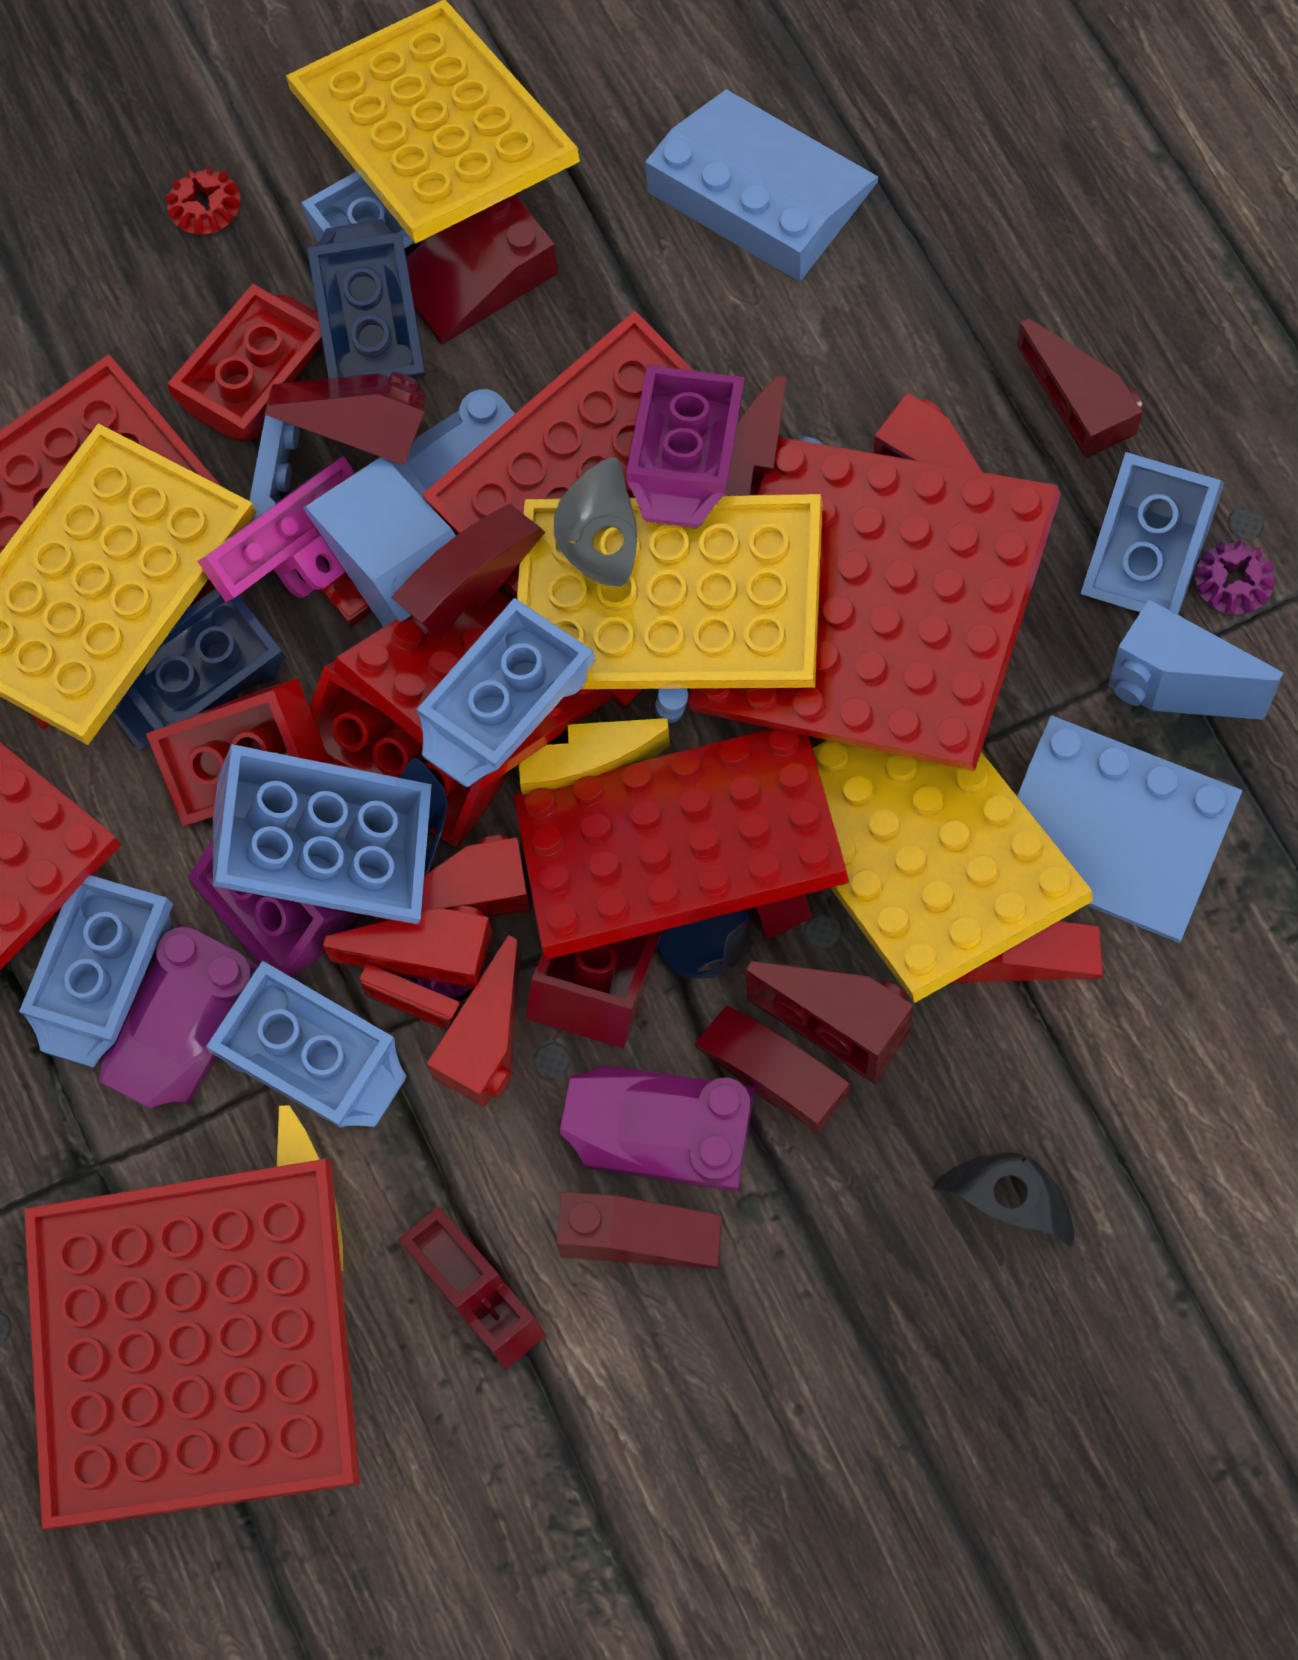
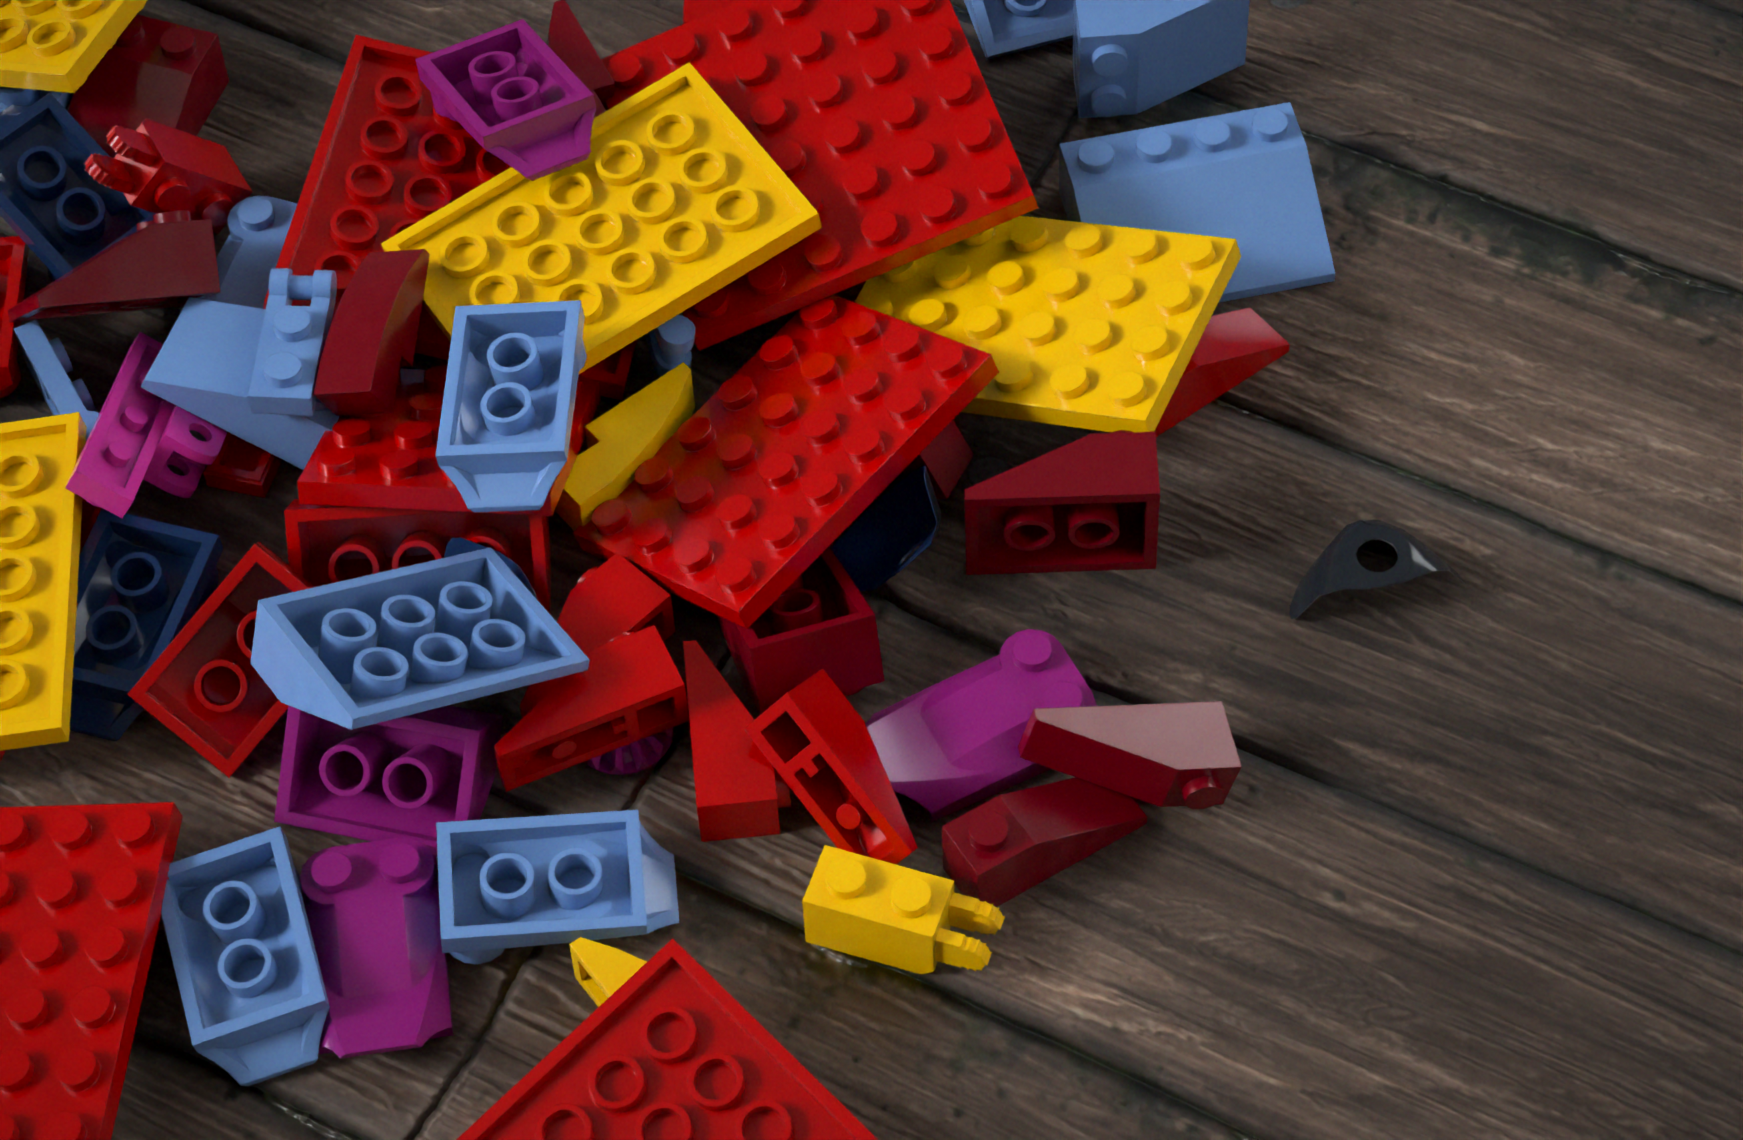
camera: 40 degrees left, 15 degrees down
(409, 997) = (623, 771): red tile -> none
(411, 541) = (292, 342): none -> medium blue plate
(444, 343) = (170, 172): none -> red hinge
(472, 1287) = (917, 992): dark red slope -> none
(495, 1223) = (894, 914): none -> yellow hinge
(533, 1092) = (834, 769): none -> red slope
(590, 504) = (468, 194): dark grey piece -> none
(744, 1229) = (1141, 750): none -> dark red slope
(775, 1068) = (1056, 596): dark red slope -> none

